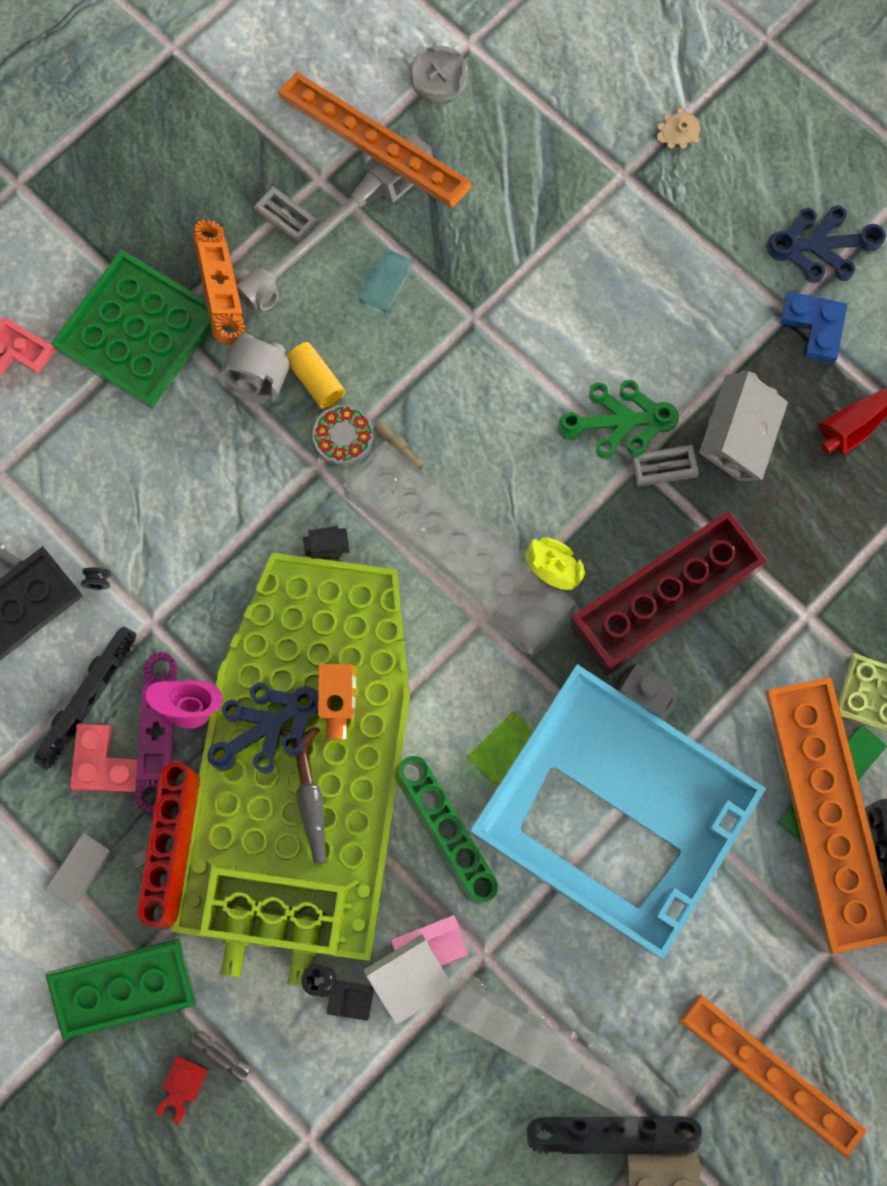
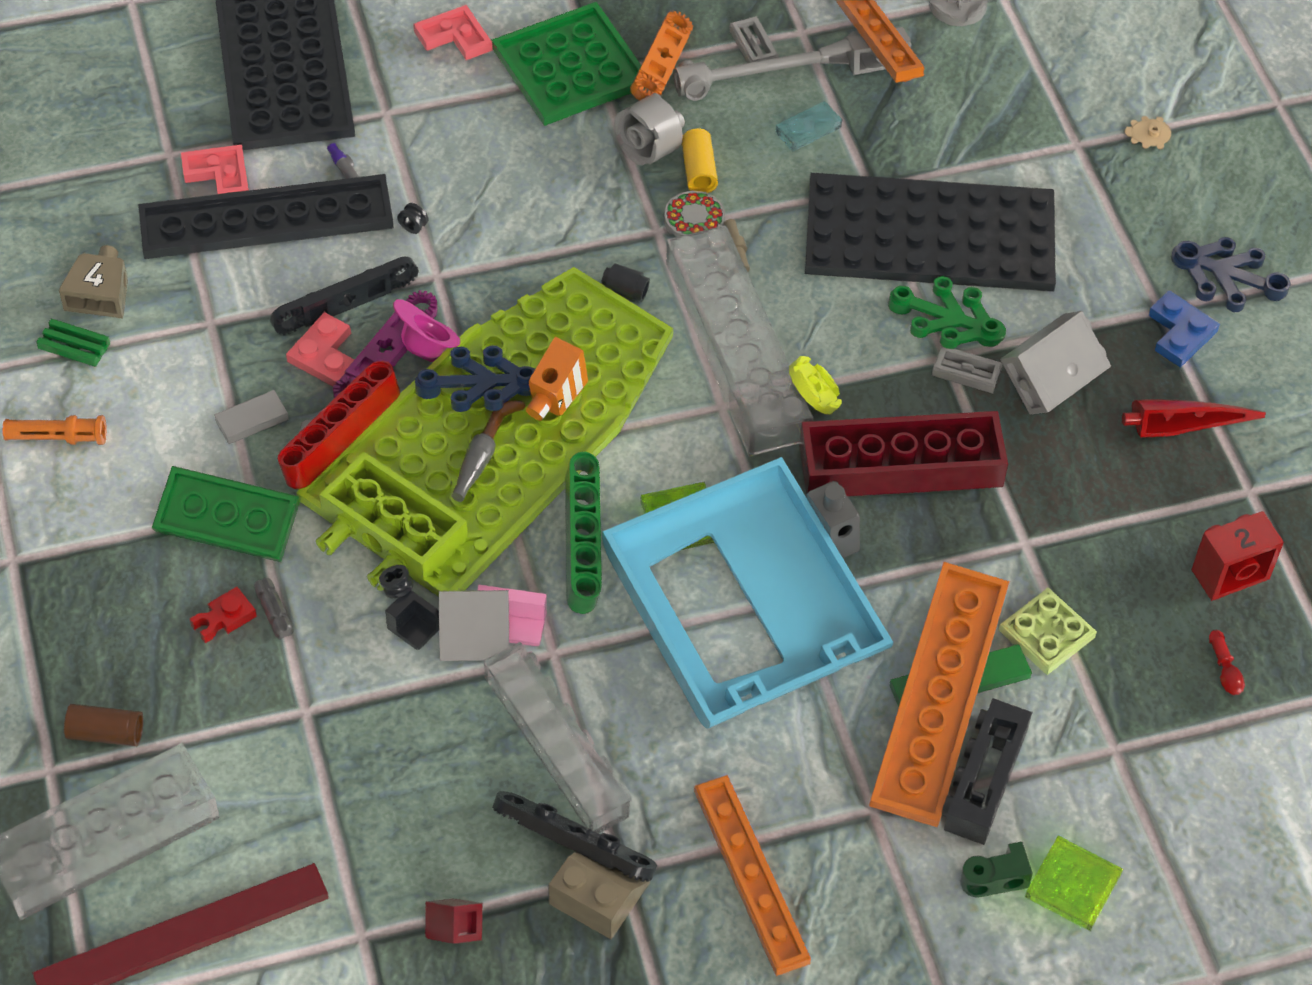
camera: 25 degrees right, 20 degrees down
(553, 338) = (931, 231): none -> black plate

